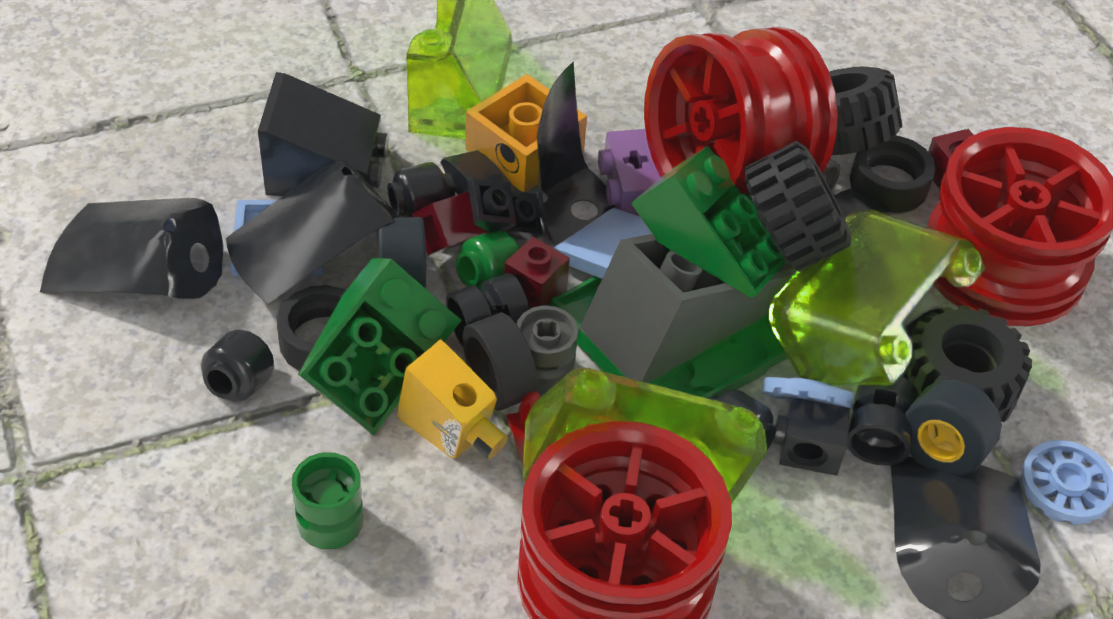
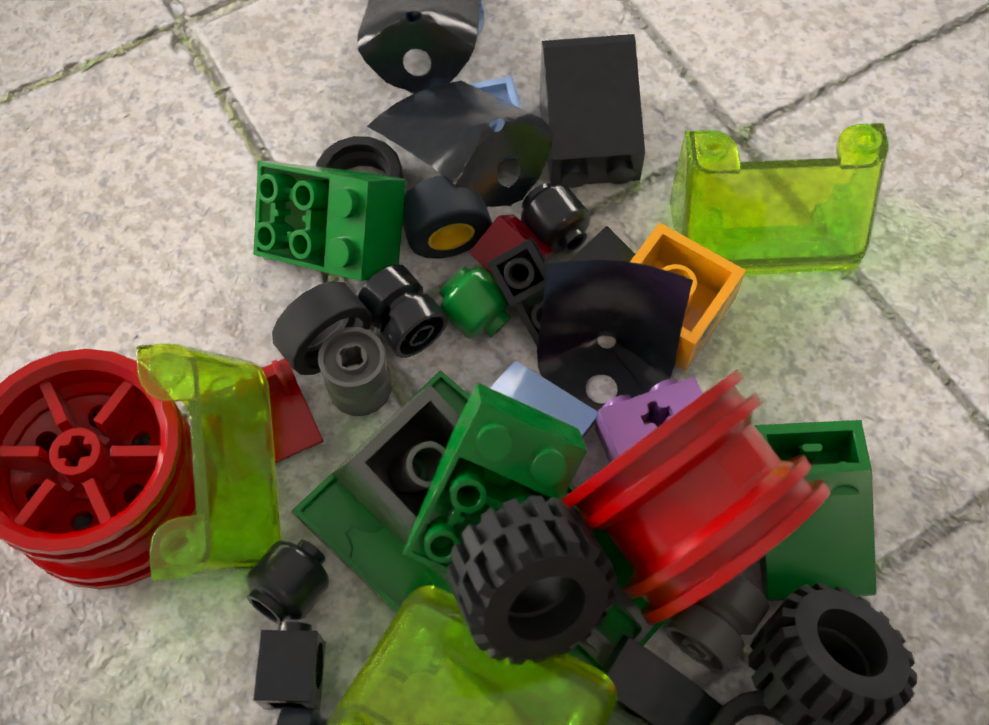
camera: 85 degrees right, 15 degrees up
(237, 365) = (299, 125): black head -> none
(328, 500) = (149, 225): green wheel -> none
(449, 404) = (259, 293): yellow torso -> none
(539, 271) = (459, 347): dark red brick -> none
(806, 389) = (334, 648): light blue wheel -> none

